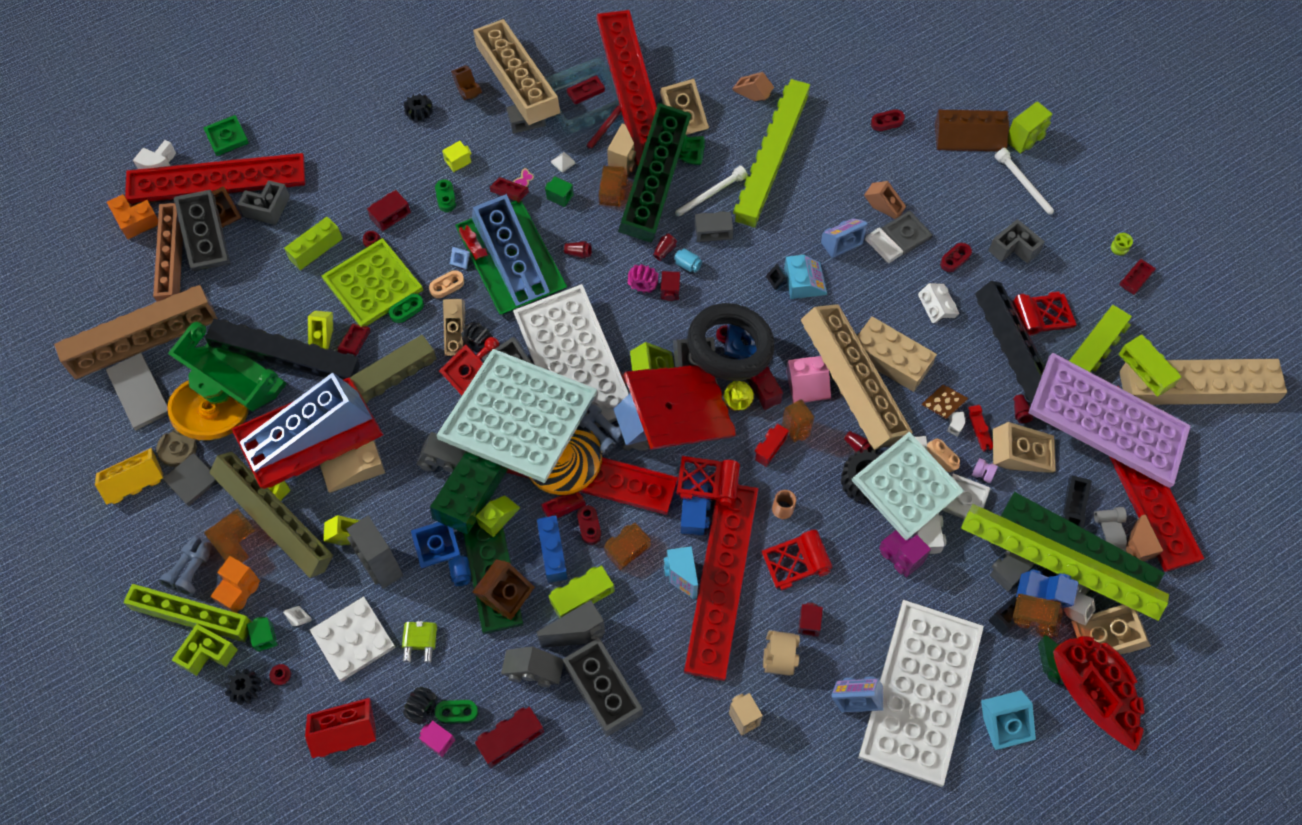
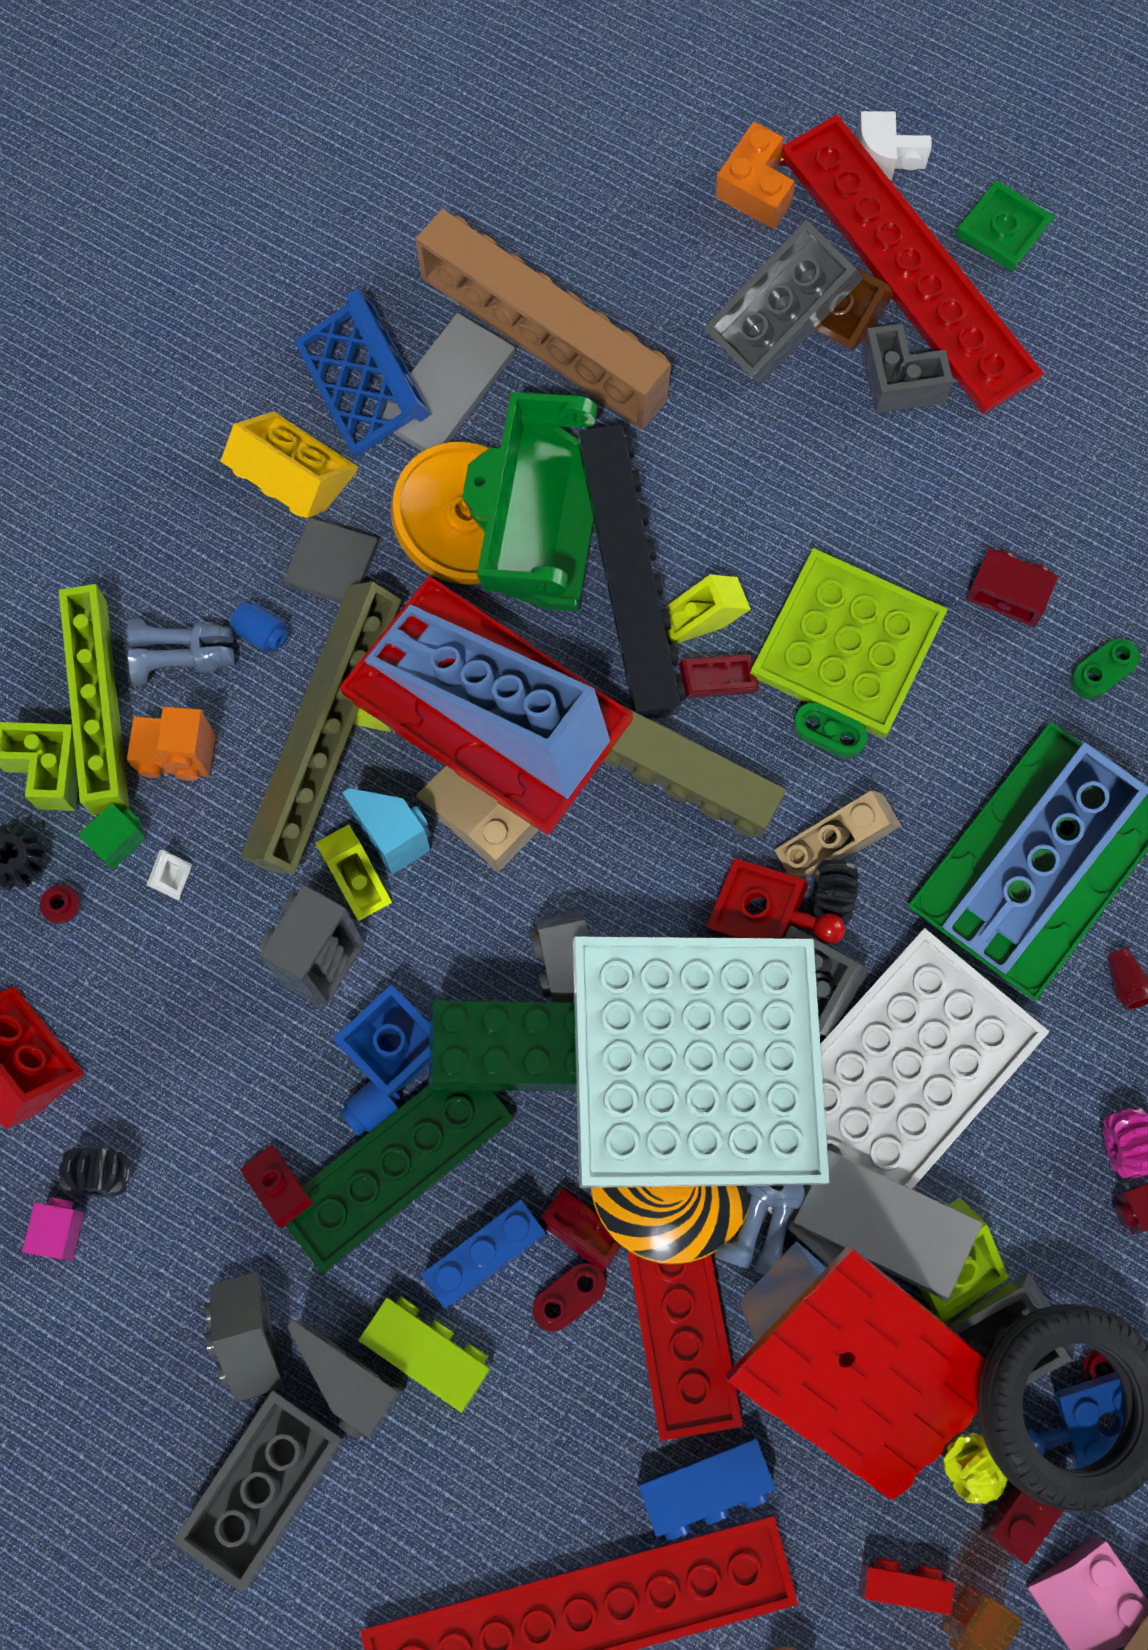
camera: 65 degrees right, 10 degrees up
(110, 407) = (389, 364): none -> blue fence
(168, 253) = (703, 282): nougat brick -> none
(175, 448) = (368, 504): dark tan tile -> none
(201, 522) = (259, 626): none -> blue brick
(228, 533) = (251, 679): clear orange brick -> none
(313, 243) = (870, 497): lime brick -> none
(336, 500) = (390, 826): none -> medium azure slope
(352, 639) = (172, 987): white plate -> none
(370, 235) = (941, 582): dark red plate -> none
(419, 637) = (221, 1100): lime piece -> none
(446, 284) = (919, 772): light nougat plate -> none
(457, 710) = (114, 1241): green plate -> none
(459, 258) = (985, 768): light blue slope -> none
(472, 243) = (1028, 775): red piece -> none
(472, 625) = (276, 1186): none -> dark red plate
(496, 514) = (499, 1120): lime slope -> none
(503, 589) = (360, 1208): reddish brown slope -> none
(509, 736) = (108, 1358): dark red brick -> none
(612, 384) = (889, 1225): none -> light grey tile
(627, 545) = (556, 1394): clear orange brick -> none
(681, 570) = (550, 1534): medium azure slope -> none
(724, 484) = (770, 1533): red piece -> none

